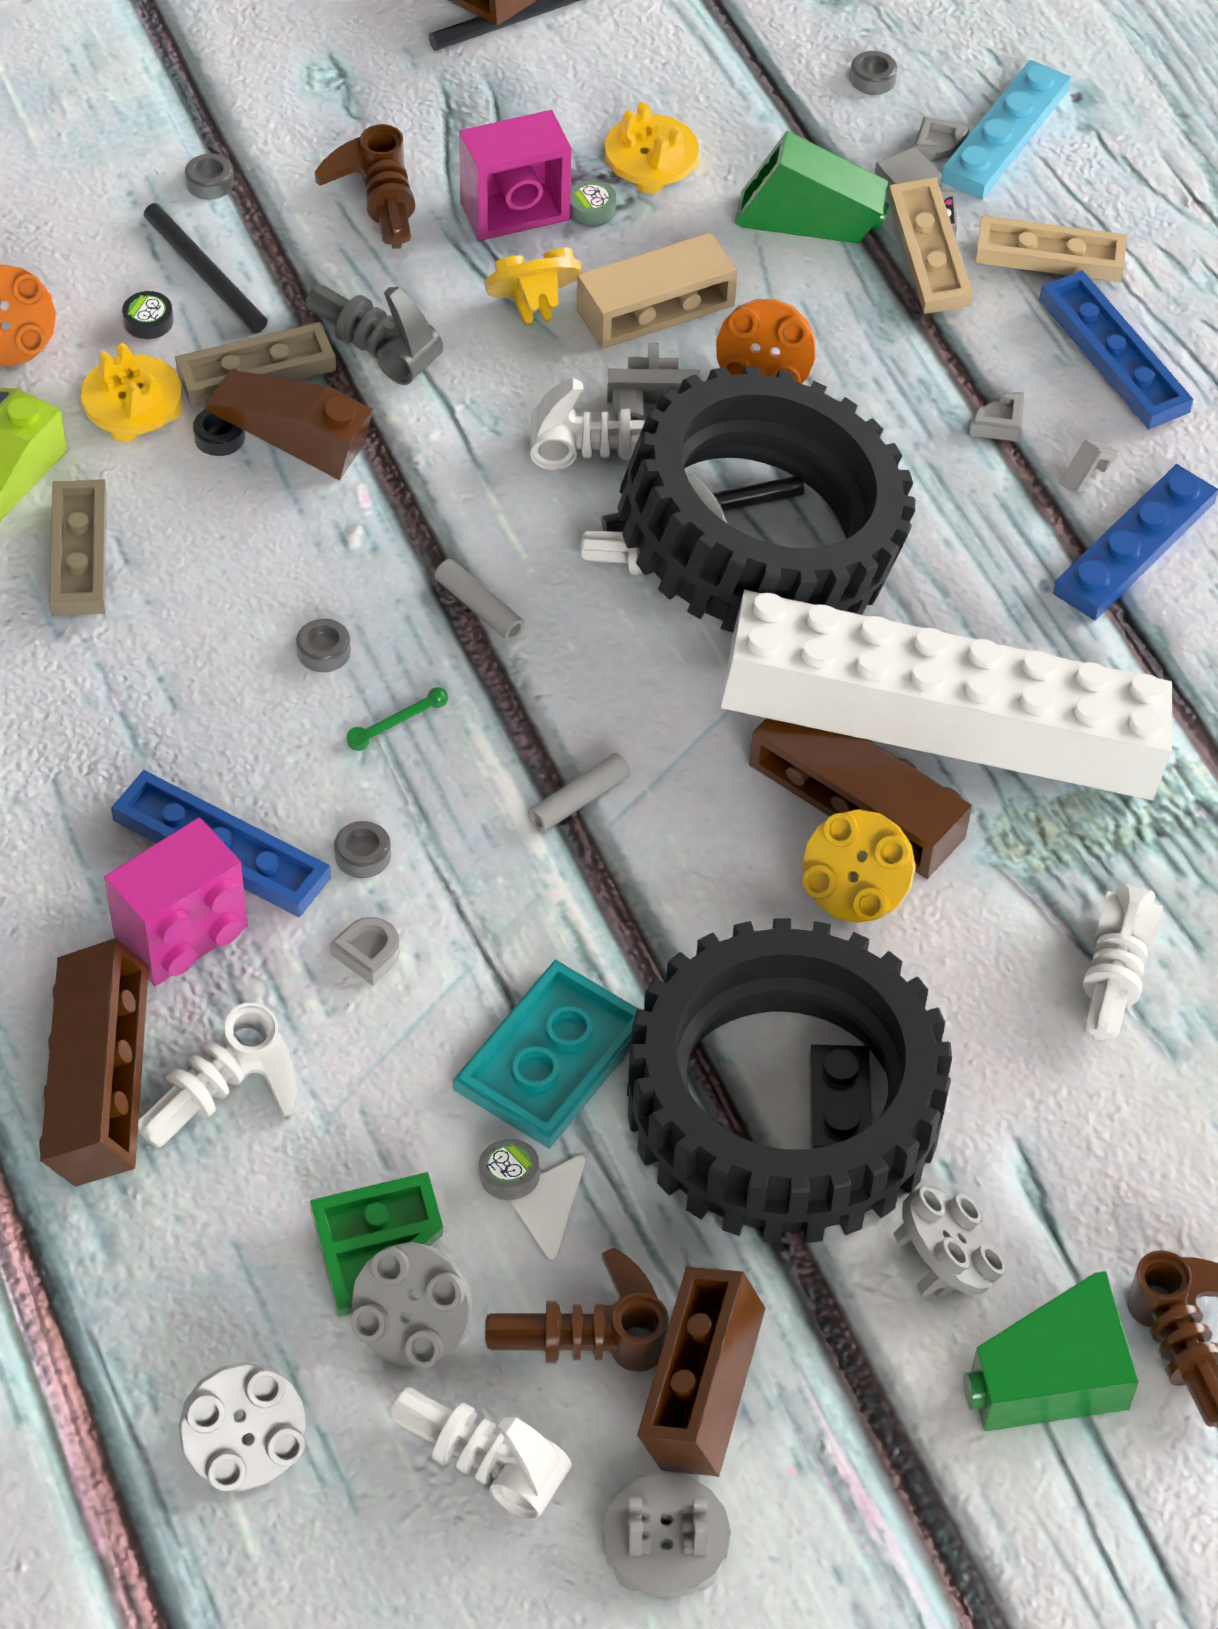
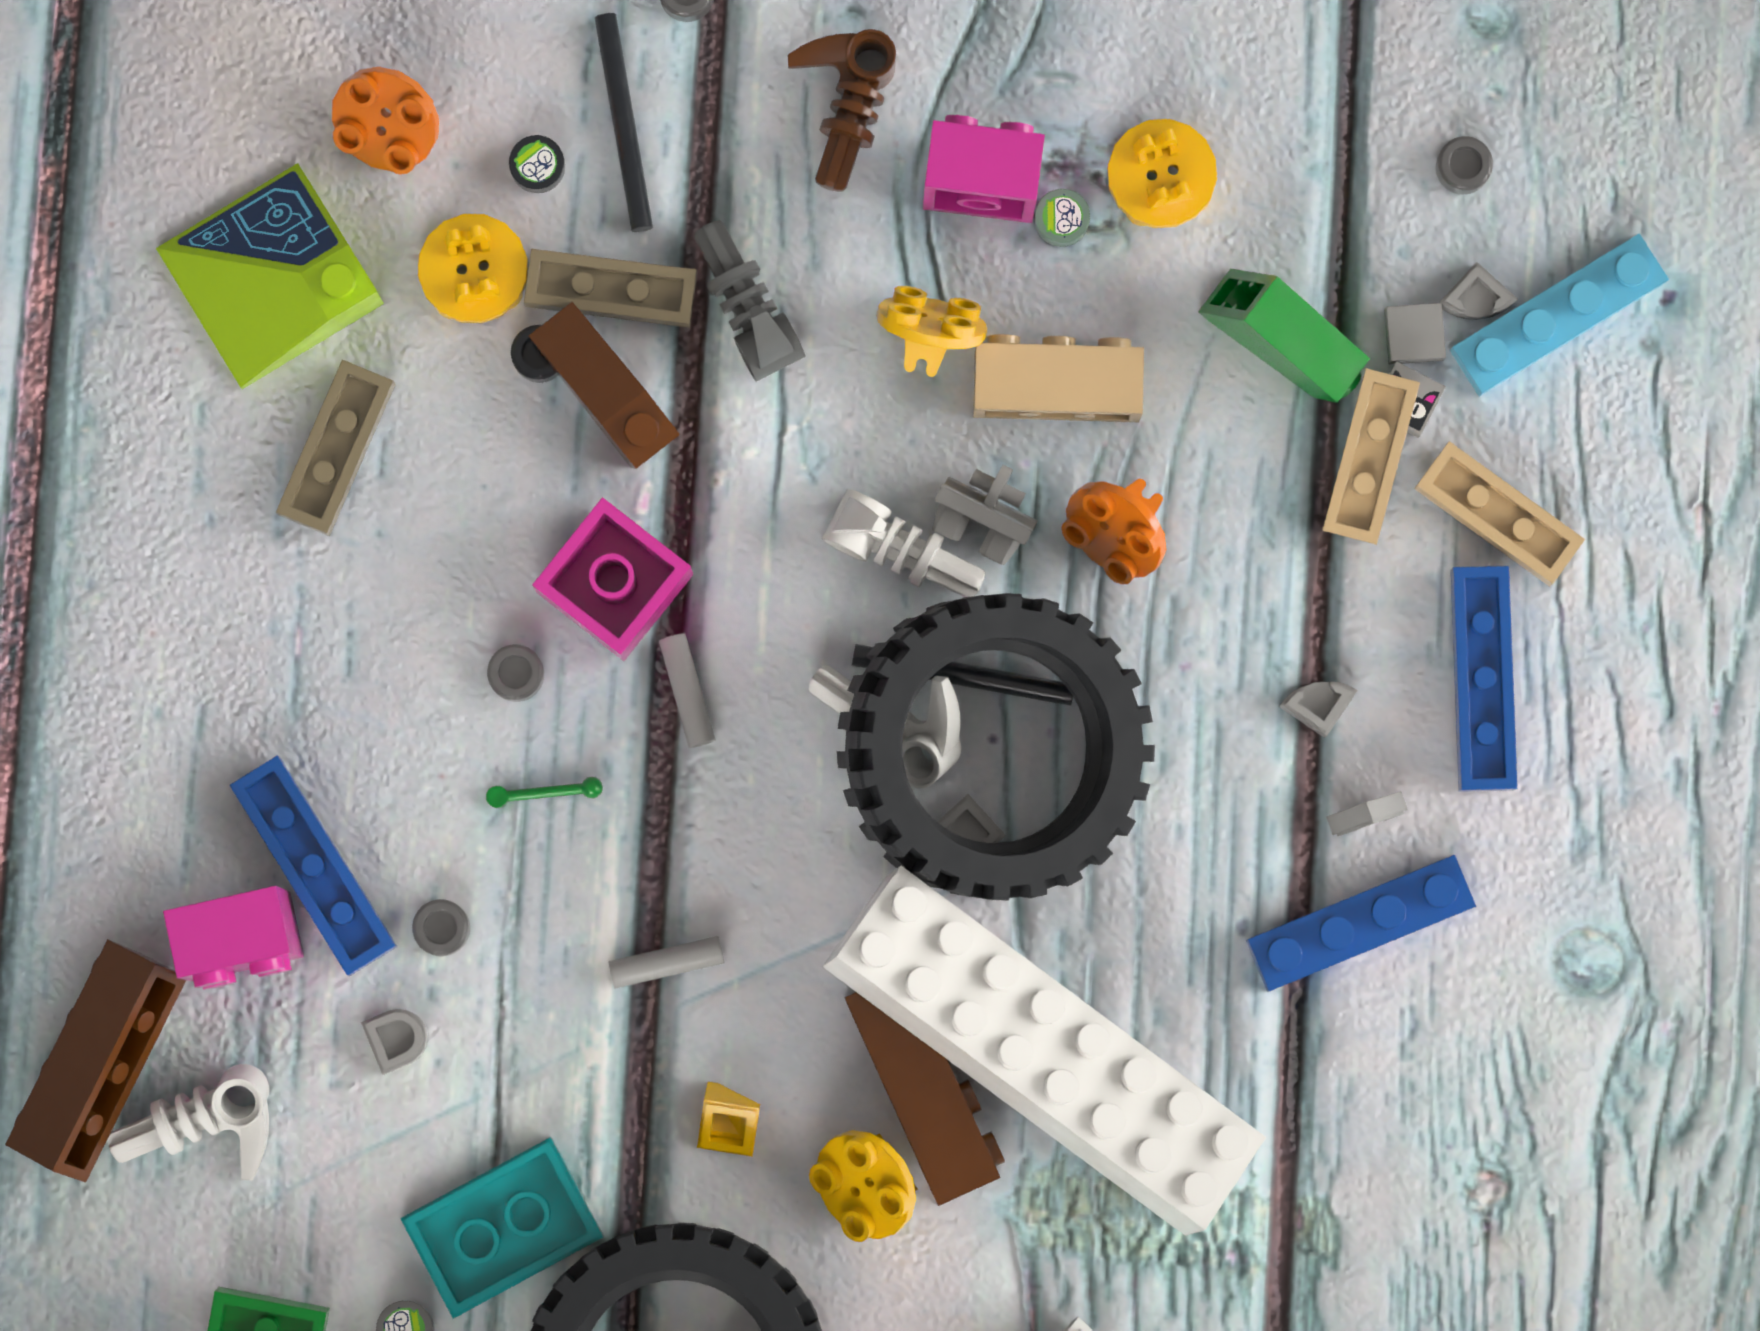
camera: 25 degrees right, 30 degrees up
(372, 533) = (613, 579): none -> dark pink brick
(707, 886) = (728, 1121): none -> yellow slope

